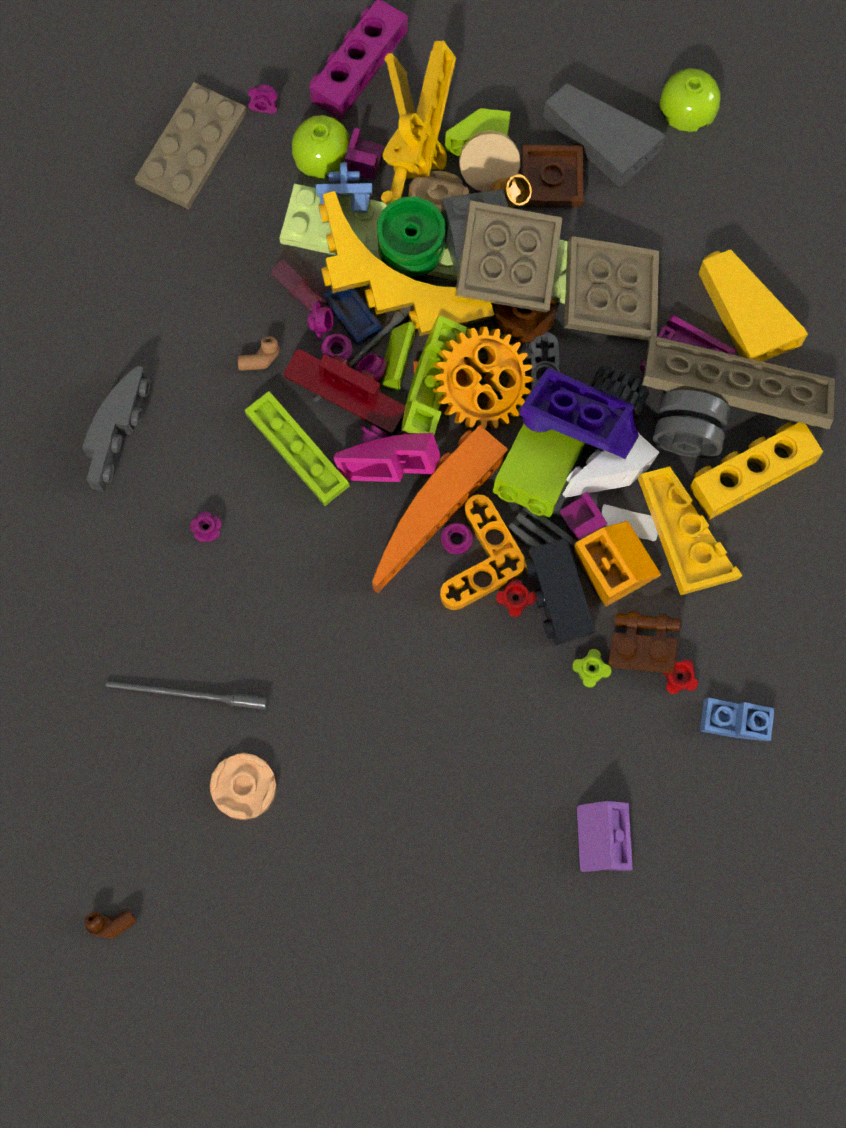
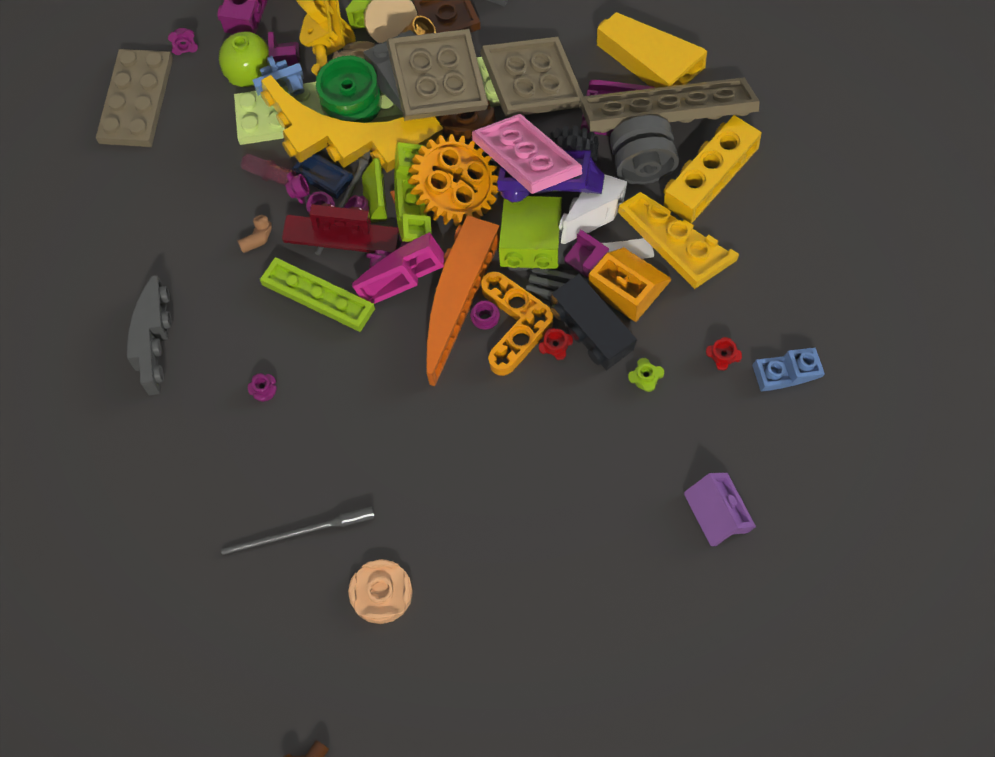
camera: 15 degrees left, 10 degrees down
(565, 384) = (526, 153): none -> bright pink tile
(641, 651) = (684, 343): reddish brown plate -> none

